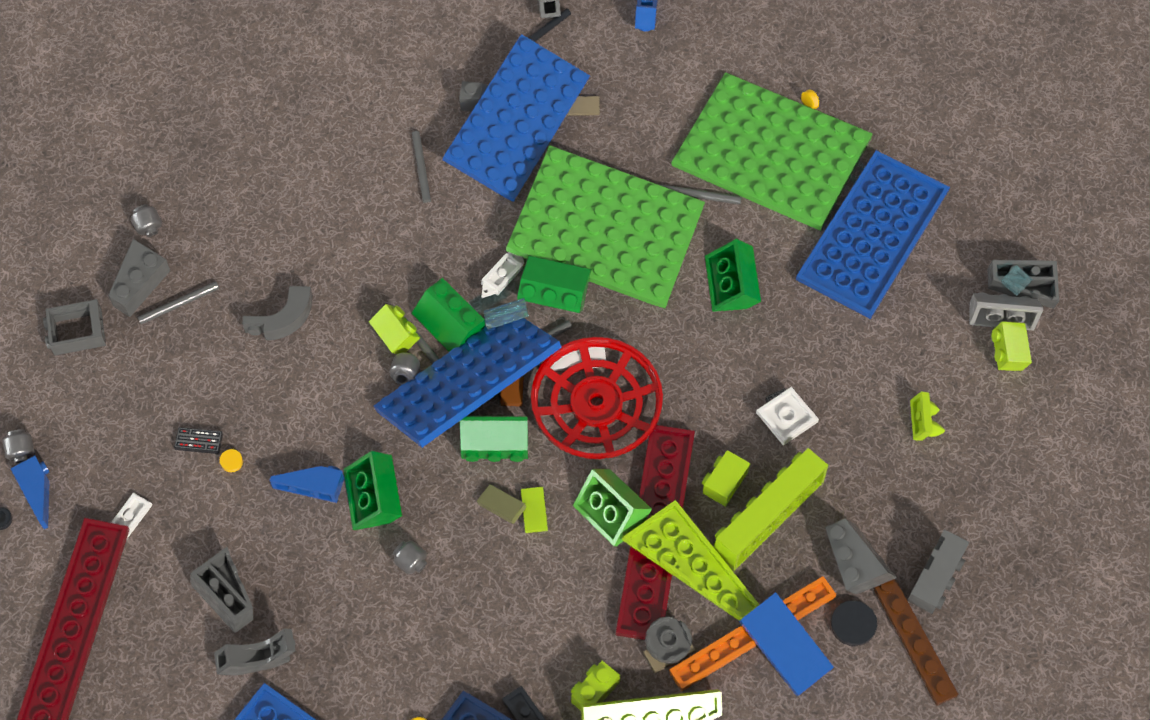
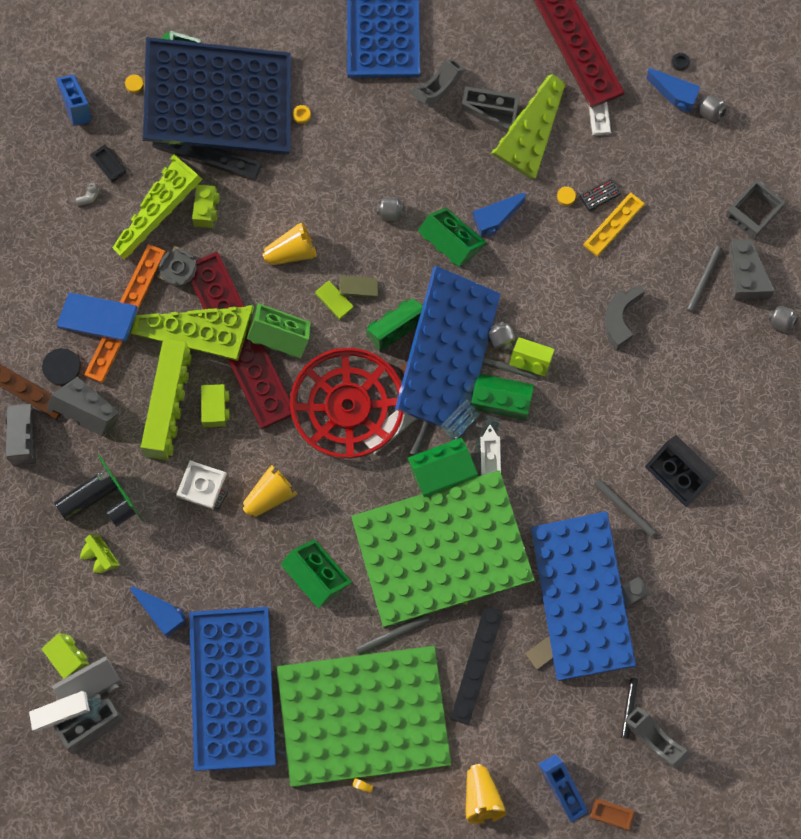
camera: 145 degrees right, 10 degrees up
(203, 542) = (529, 133): none -> lime wing
(211, 404) = (613, 224): none -> yellow tile
(348, 160) = (681, 470): none -> black slope
(539, 583) = (290, 247): none -> yellow cone
(646, 129) = (476, 665): none -> black plate
(718, 31) = (482, 797): none -> yellow cone
(728, 366) = (268, 493): none -> yellow cone
(890, 473) = (93, 491): none -> black piece
(898, 332) = (162, 613): none -> blue slope
(1046, 291) = (59, 711): none -> white tile

